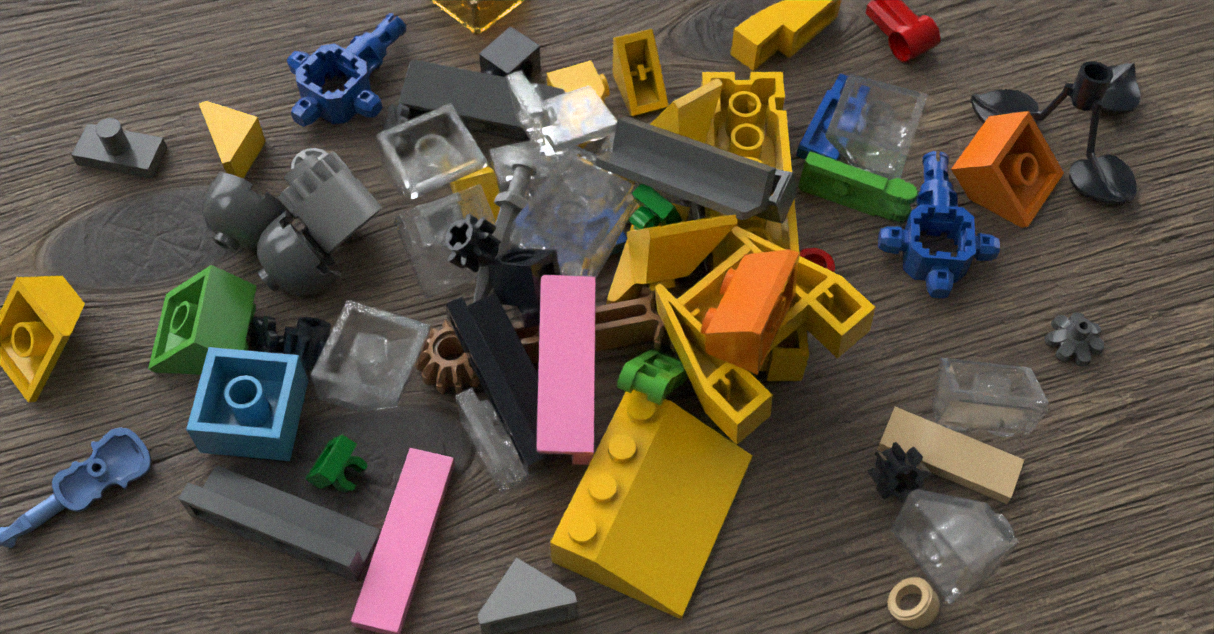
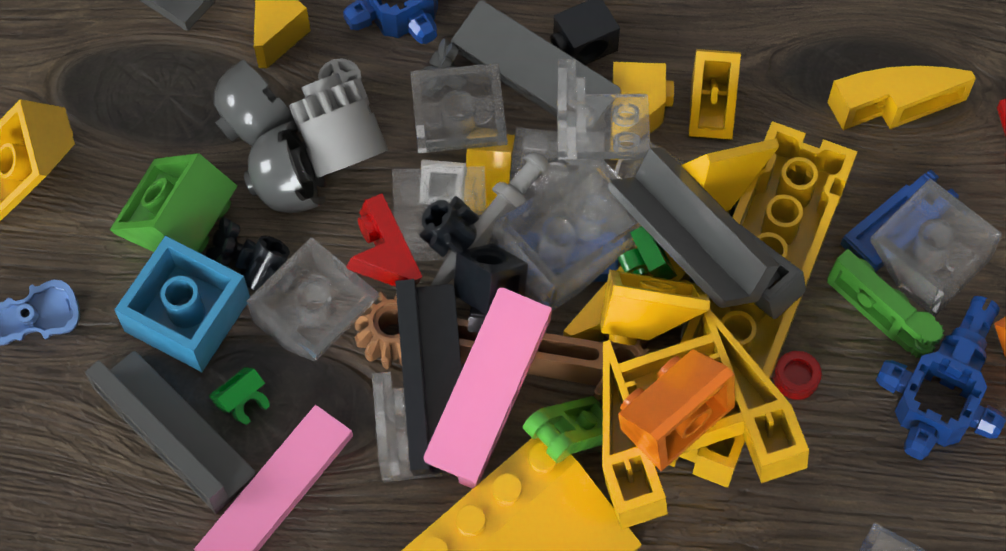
camera: 25 degrees right, 5 degrees up
(427, 283) = (391, 256): none -> red slope

